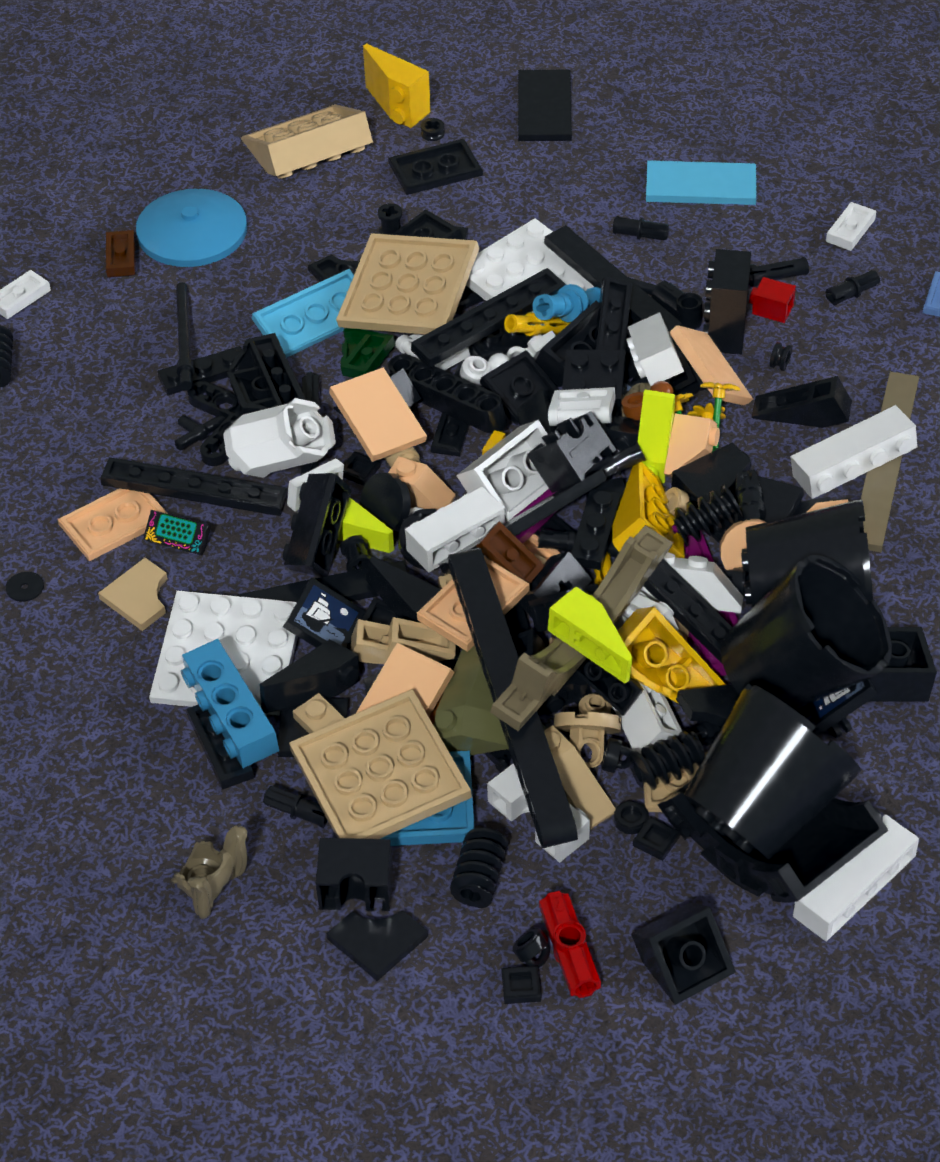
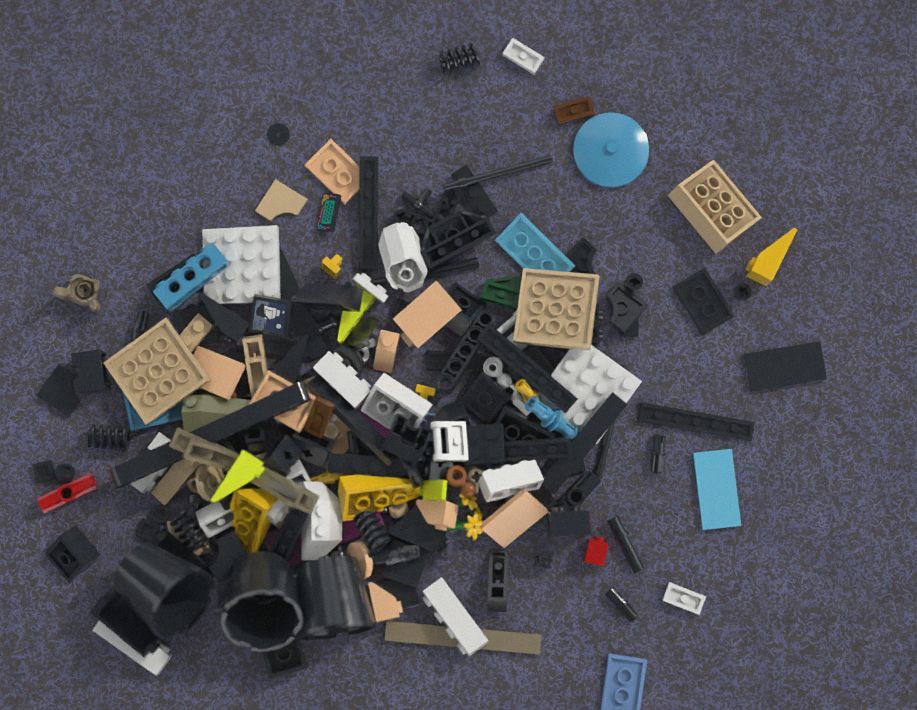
camera: 80 degrees right, 35 degrees up
(266, 537) = (332, 266): none -> yellow tile
(603, 188) = (696, 421): none -> black tile

